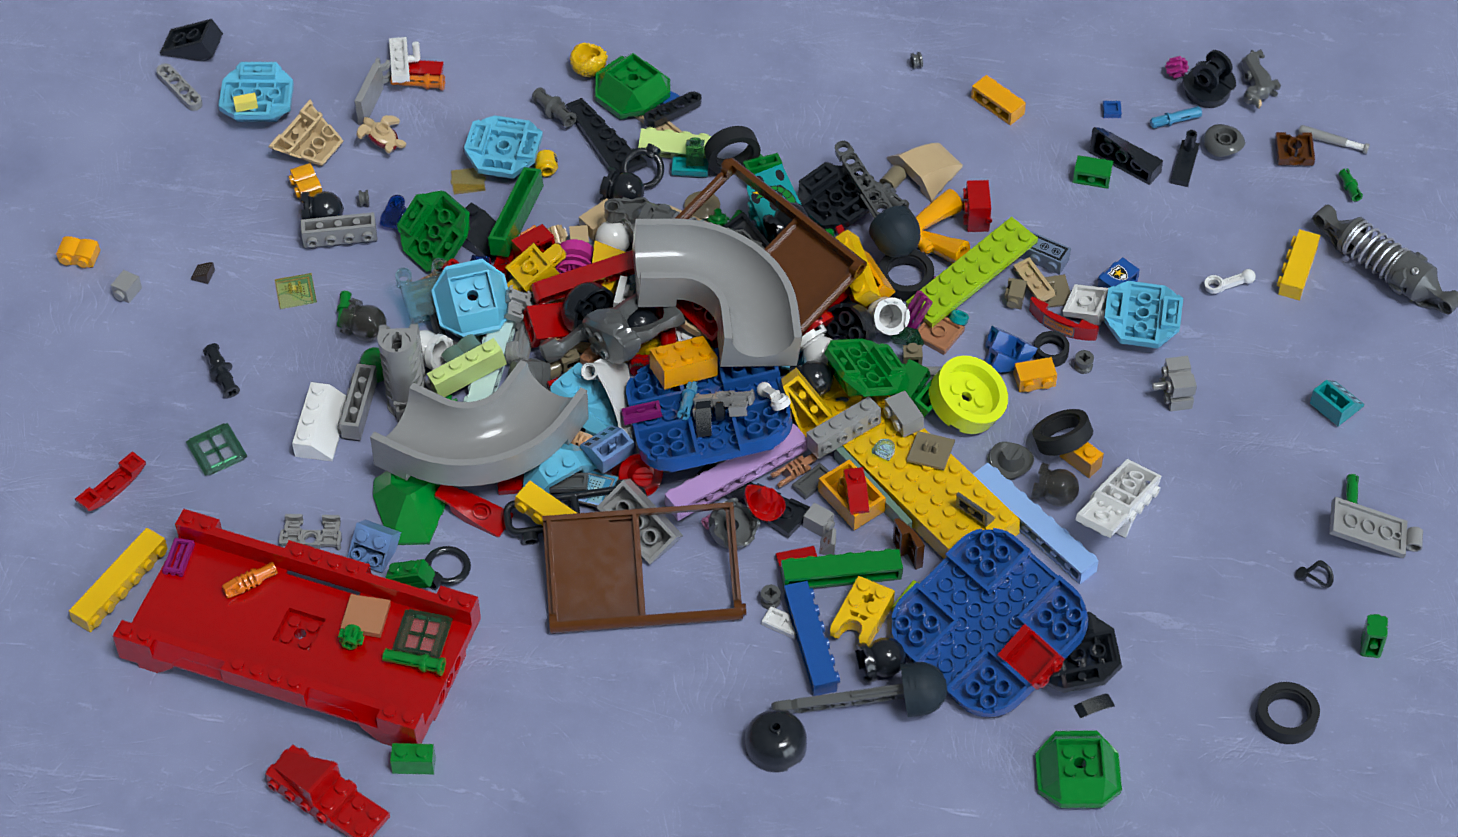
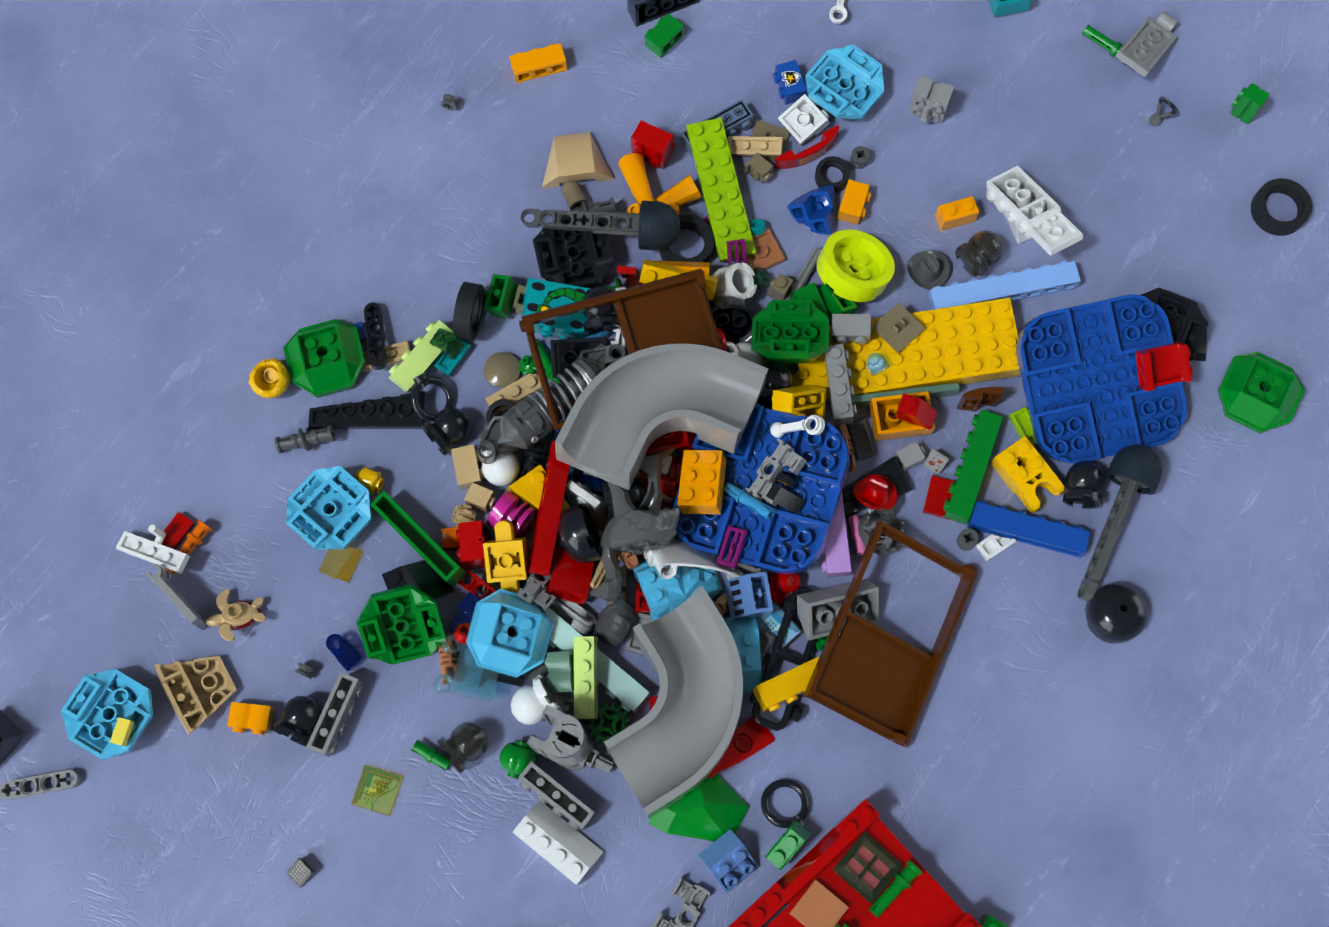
camera: 60 degrees left, 20 degrees up
(220, 370) = (439, 911): black piece -> none
(973, 510) = (987, 327): dark grey slope -> none
(1067, 442) = (914, 208): black tyre -> none

